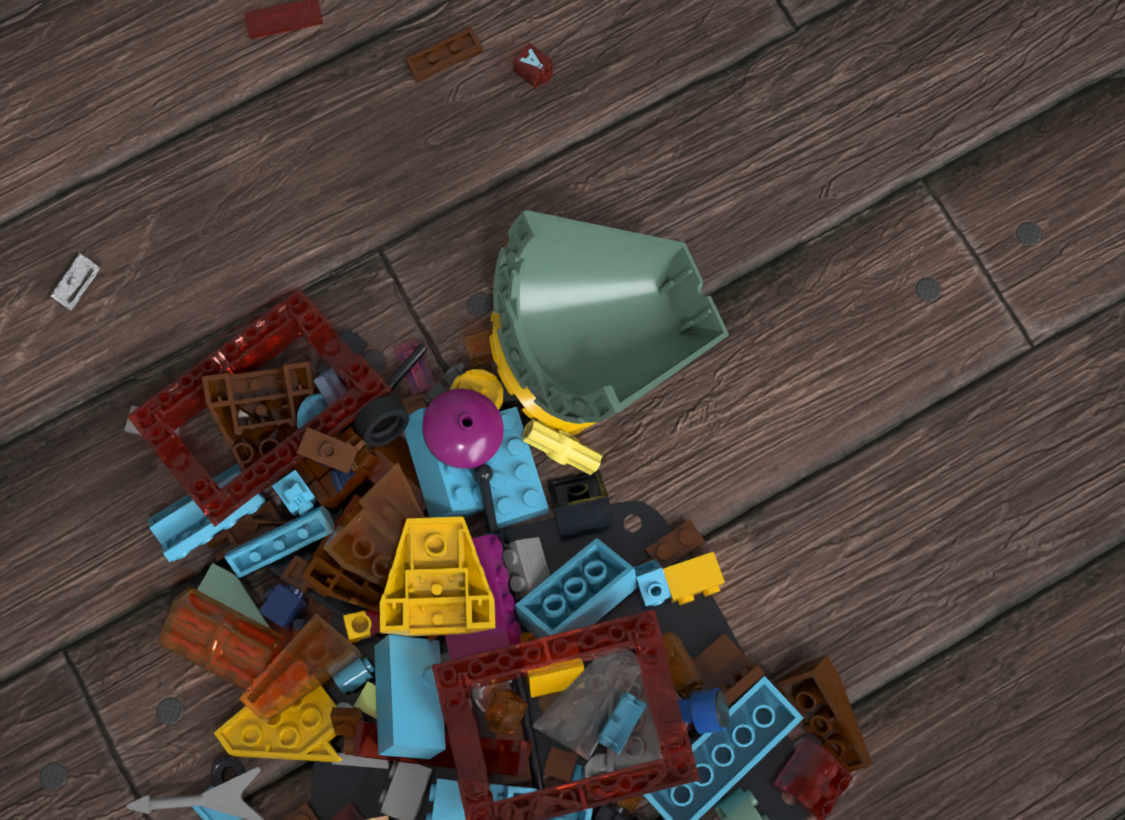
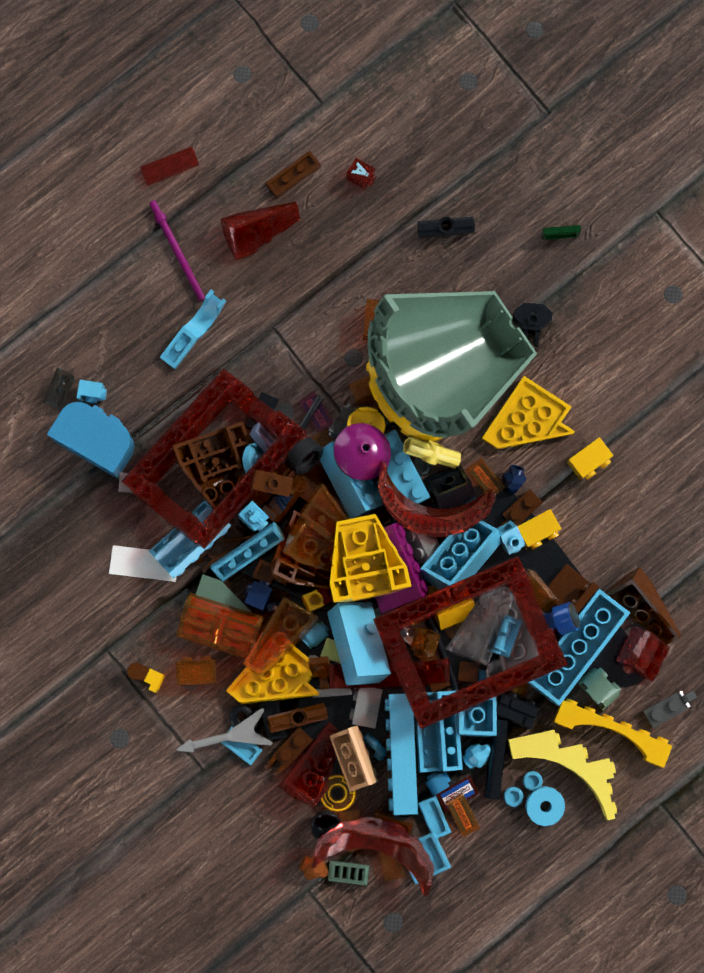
camera: 10 degrees left, 5 degrees up
(104, 350) = (93, 437): none -> dark azure brick
(108, 692) = (140, 672): none -> leg
(115, 291) = (91, 391): none -> medium azure brick
(128, 533) = (137, 563): none -> white sticker
(177, 699) = (196, 672): none -> clear orange brick
(258, 84) = (161, 219): none -> magenta bar
(267, 235) = (193, 330): none -> medium azure piece
(272, 787) = (271, 708): none -> black tile
(285, 790) = (285, 720): none -> reddish brown piece
(380, 113) = (253, 228): none -> clear red wedge
(539, 539) = (428, 520): none -> clear red windscreen
(545, 465) = (422, 467): none -> dark grey tile
(631, 496) = (485, 477): none -> clear orange tile
(650, 152) = (458, 226): none -> black piece
(670, 502) = (514, 478): none -> dark blue rock
(704, 421) = (528, 417): none -> yellow wing
(731, 291) = (532, 323): none -> black hinge
(781, 492) = (590, 459): none -> yellow brick
(788, 182) = (561, 232): none -> dark green tile

